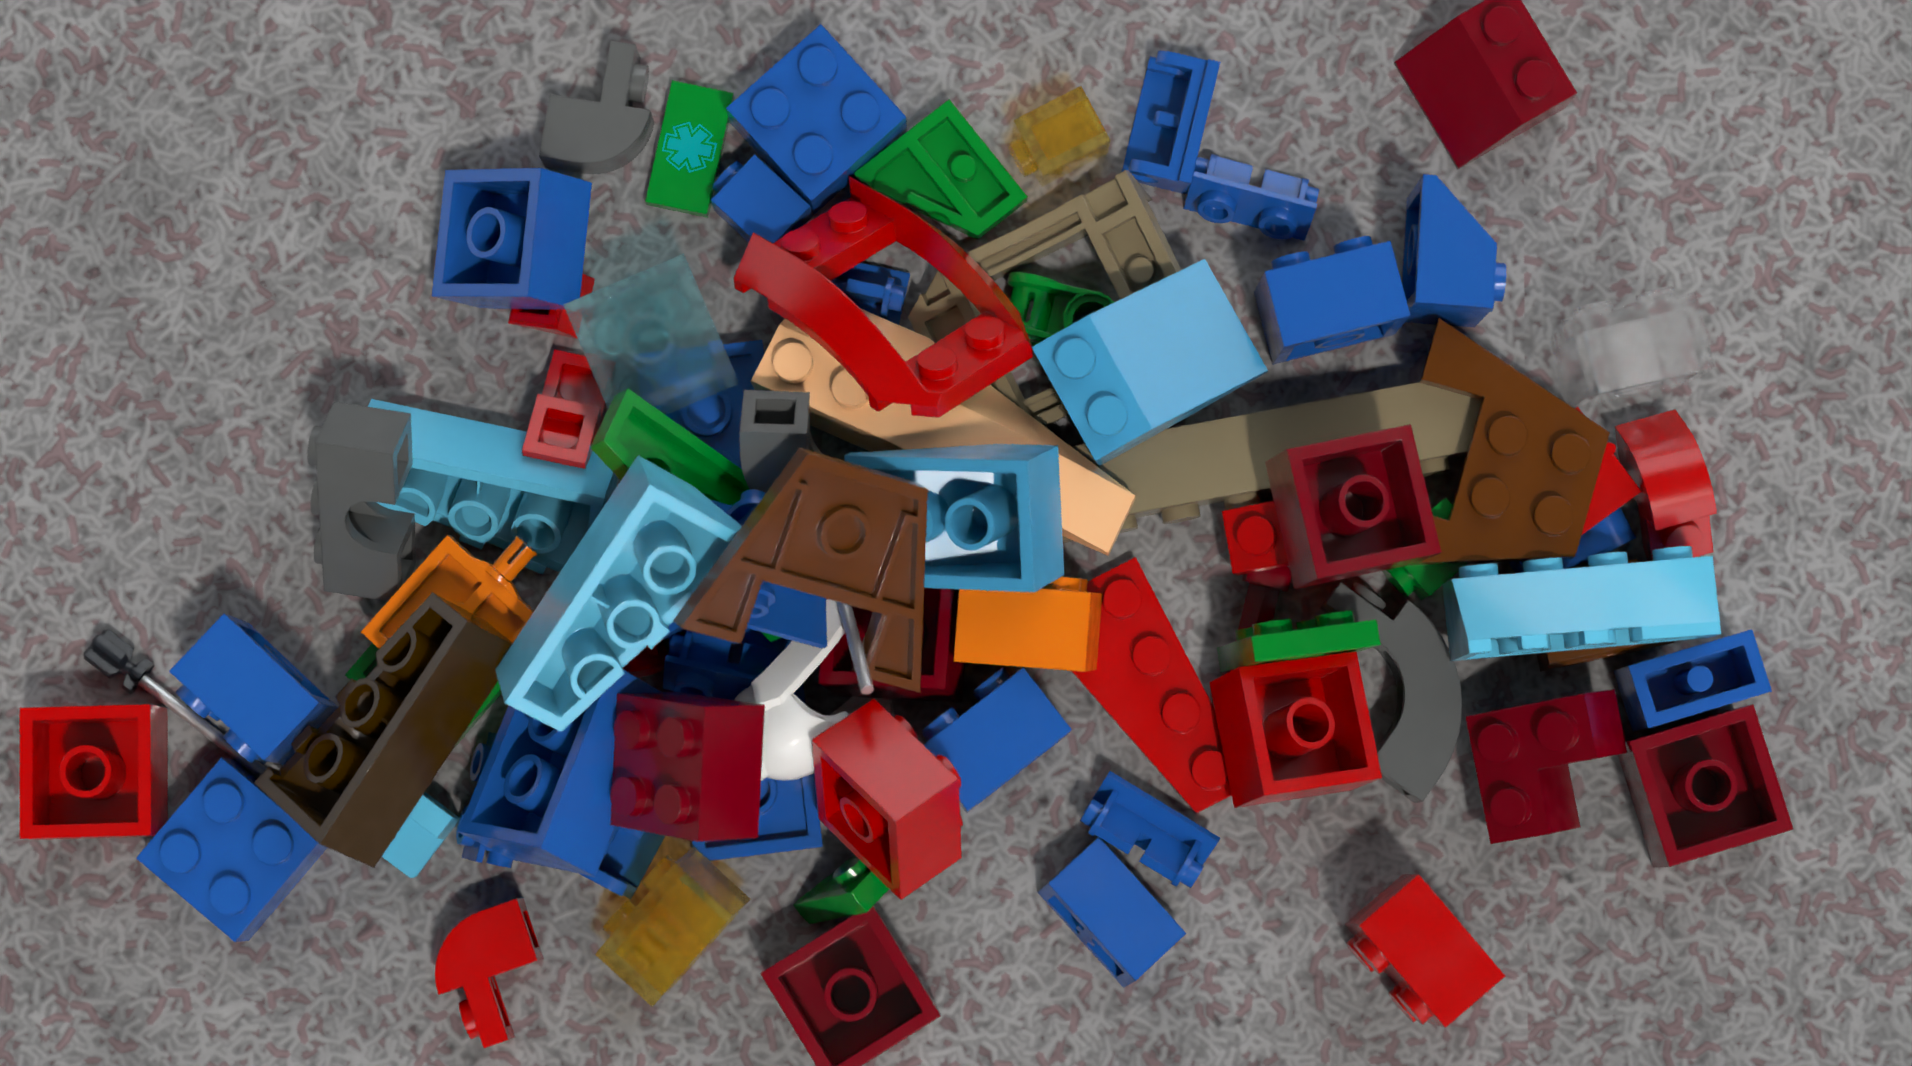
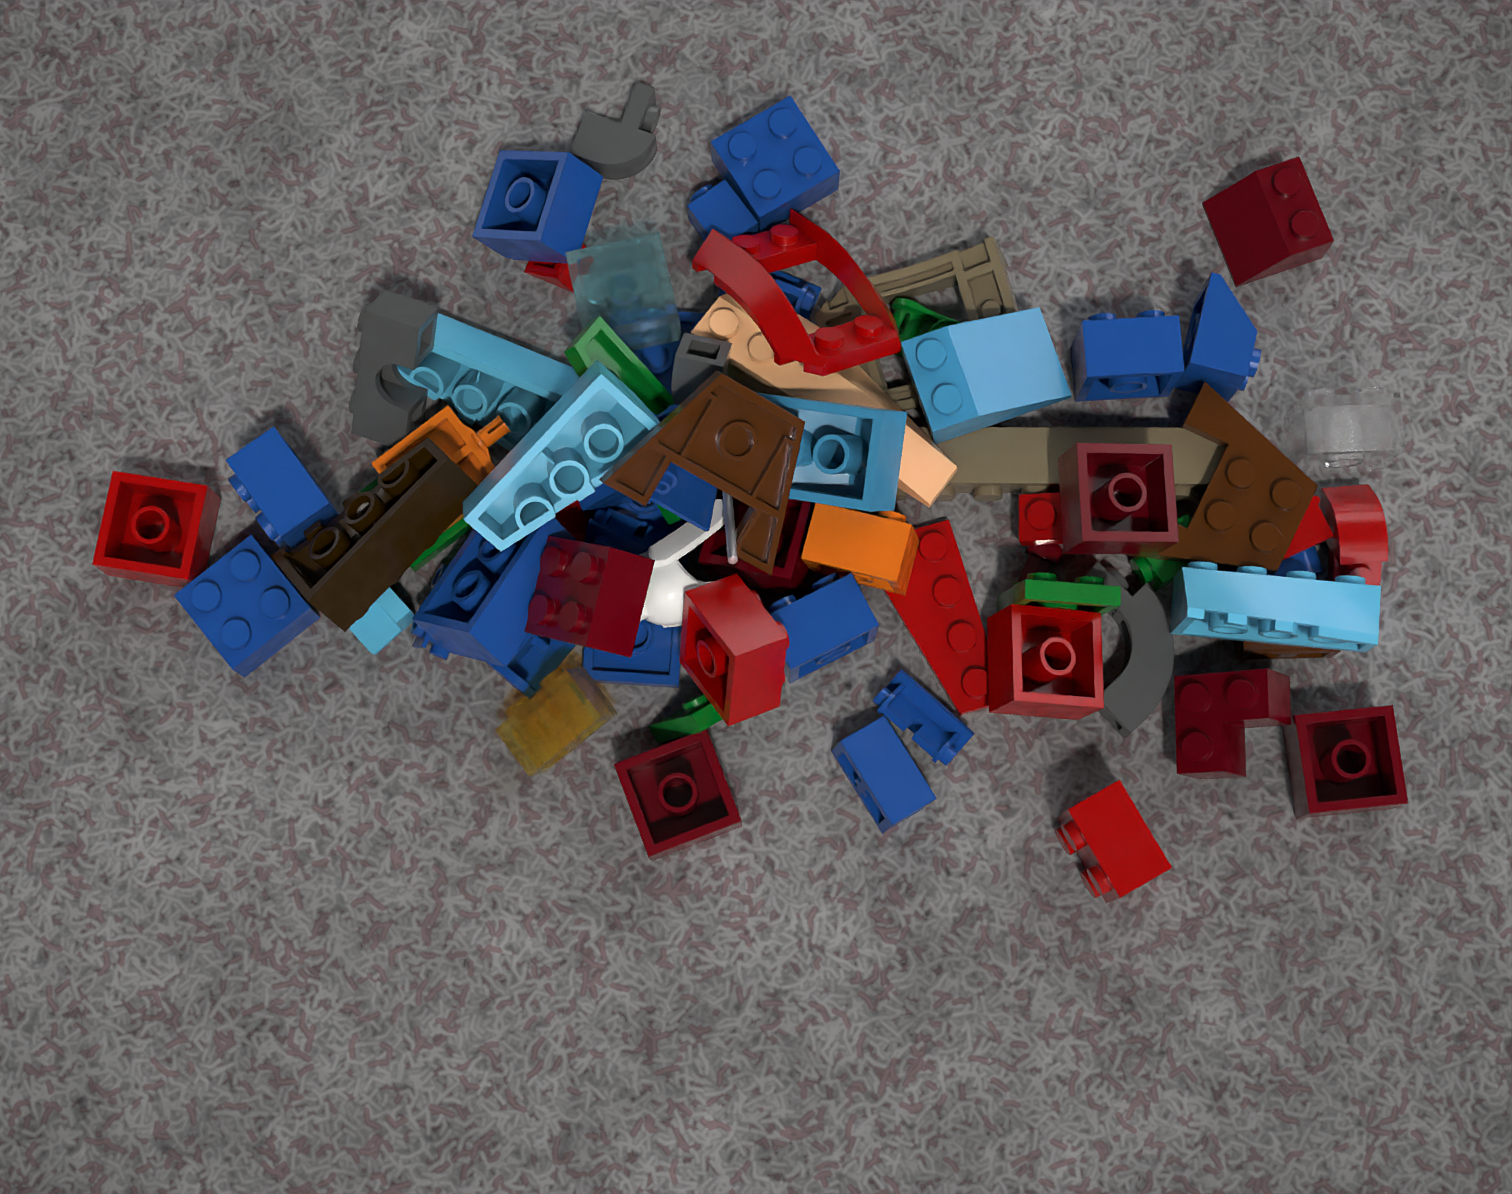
camera: 15 degrees right, 5 degrees down
(114, 656) = (190, 454): piece -> none
(476, 953) = (412, 713): red brick -> none
(565, 413) = (550, 336): red slope -> none
(689, 149) = (678, 173): green tile -> none
(945, 174) = (862, 221): green wing -> none
(1058, 137) = (948, 209): clear yellow brick -> none
(1170, 120) = (1032, 212): blue hinge -> none
(1278, 208) = (1062, 272): blue hinge -> none
(1692, 680) = (1349, 682): blue brick -> none

